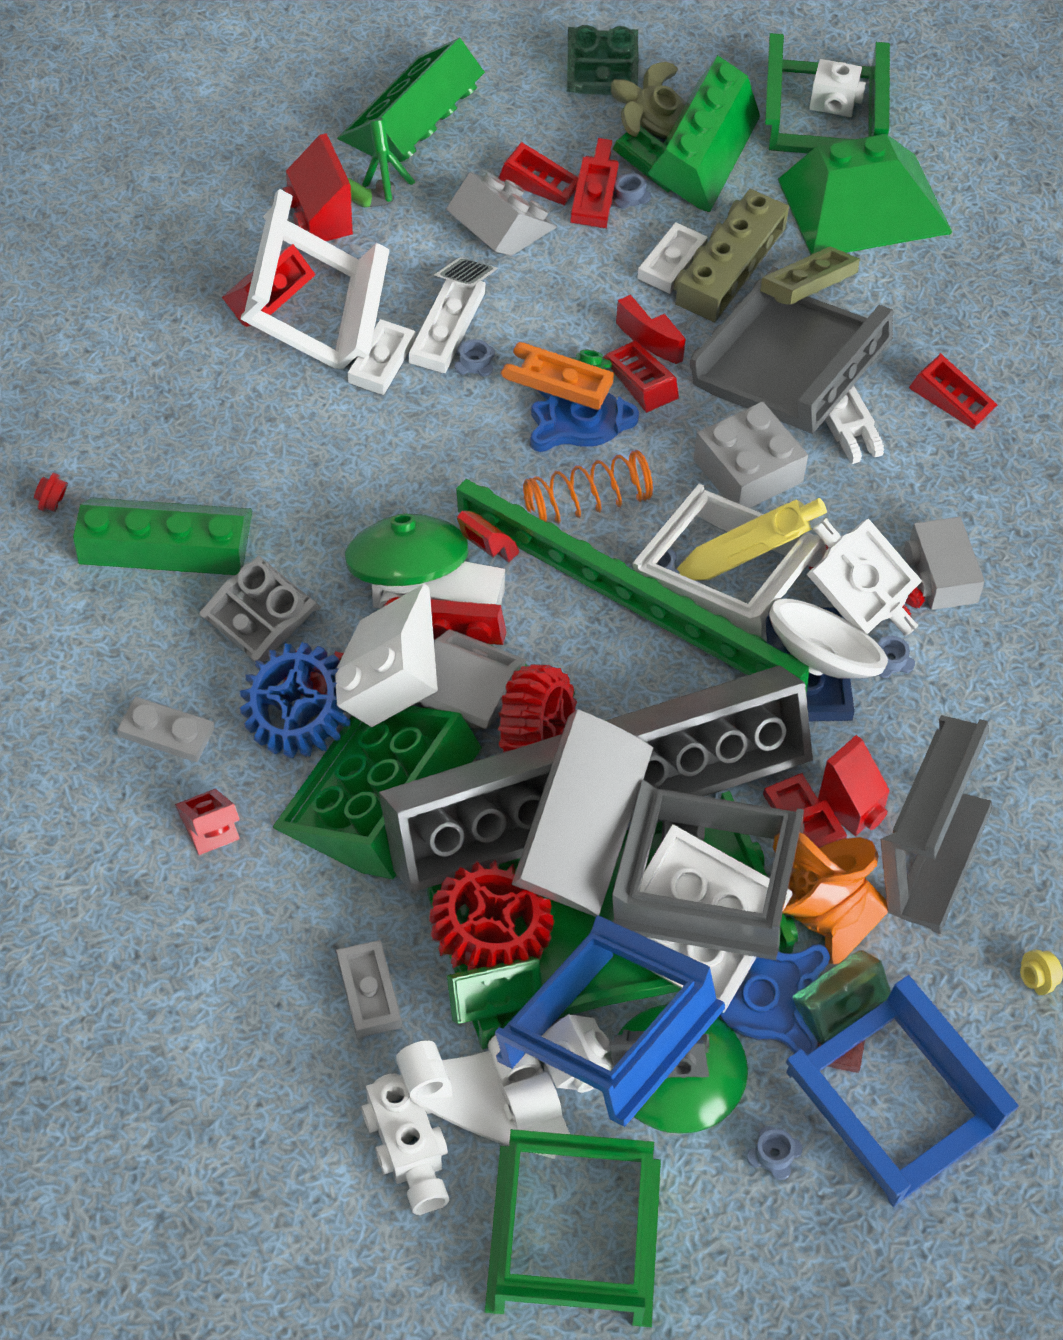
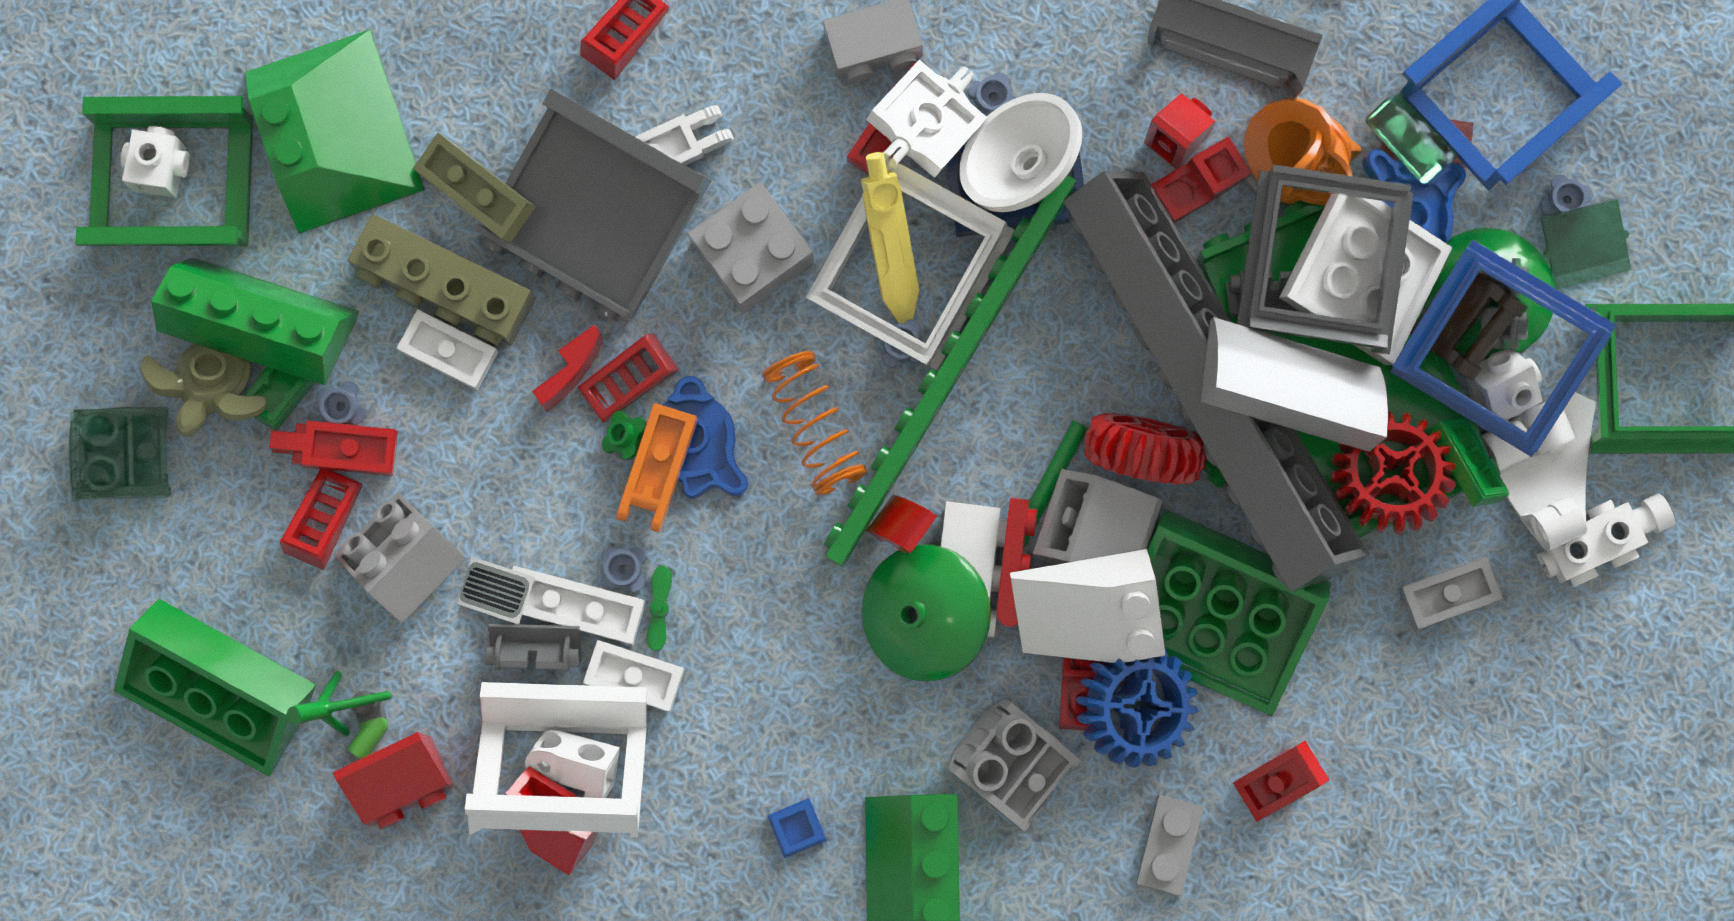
camera: 90 degrees left, 25 degrees up
(234, 458) = (796, 828): none -> blue tile
(314, 306) = (575, 762): none -> white leg
(415, 291) = (546, 644): none -> dark grey hinge
(439, 381) = (659, 608): none -> green piece
(631, 998) = (1465, 316): none -> dark brown plate
(725, 1161) = (1586, 243): none -> clear green piece

